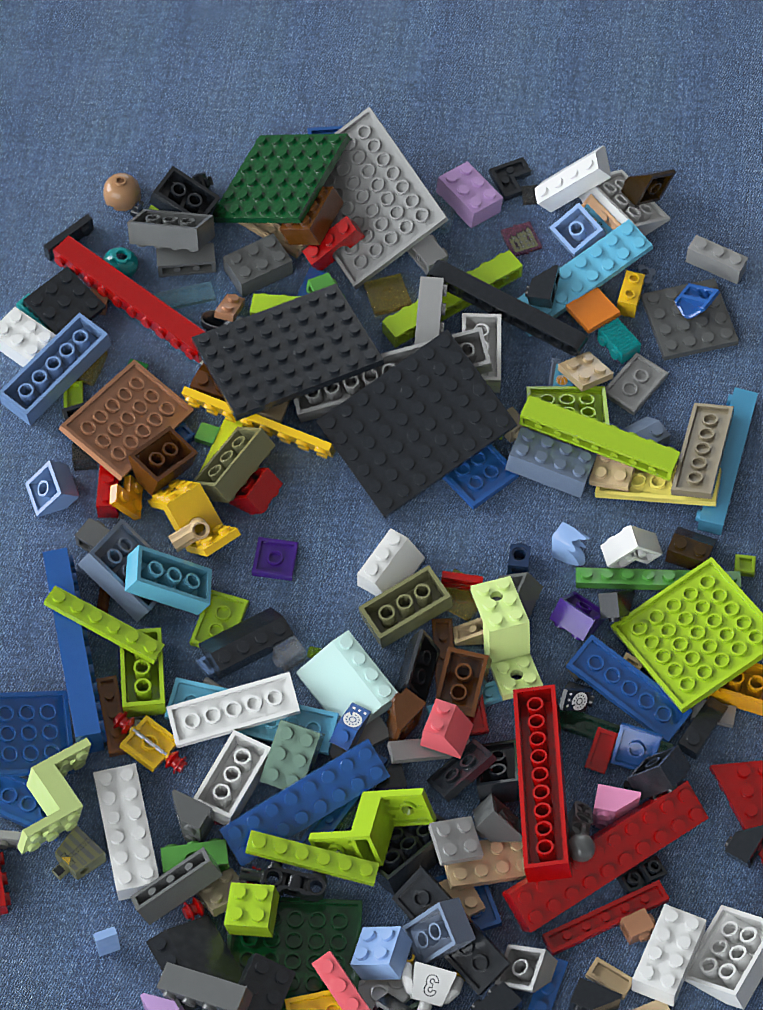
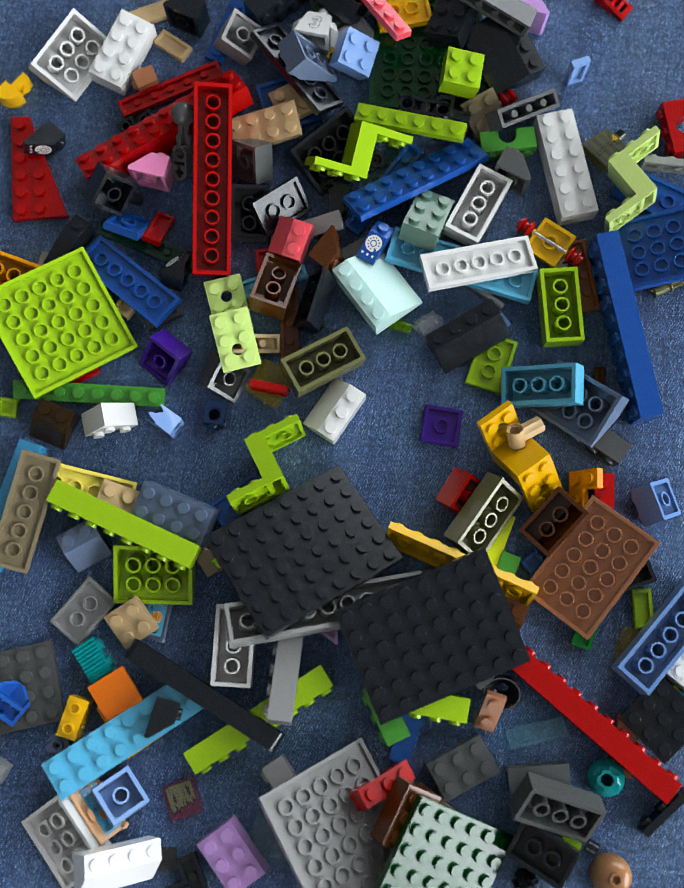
camera: 175 degrees left, 20 degrees up
(104, 624) = (601, 336): lime plate -> none
(387, 294) = (326, 729): clear yellow tile -> none
(455, 841) = (288, 132): light grey plate -> none
(459, 503) = (261, 448): none -> lime bracket
(615, 604) = (129, 363): black slope -> none
(647, 186) = (38, 859): dark brown slope -> none

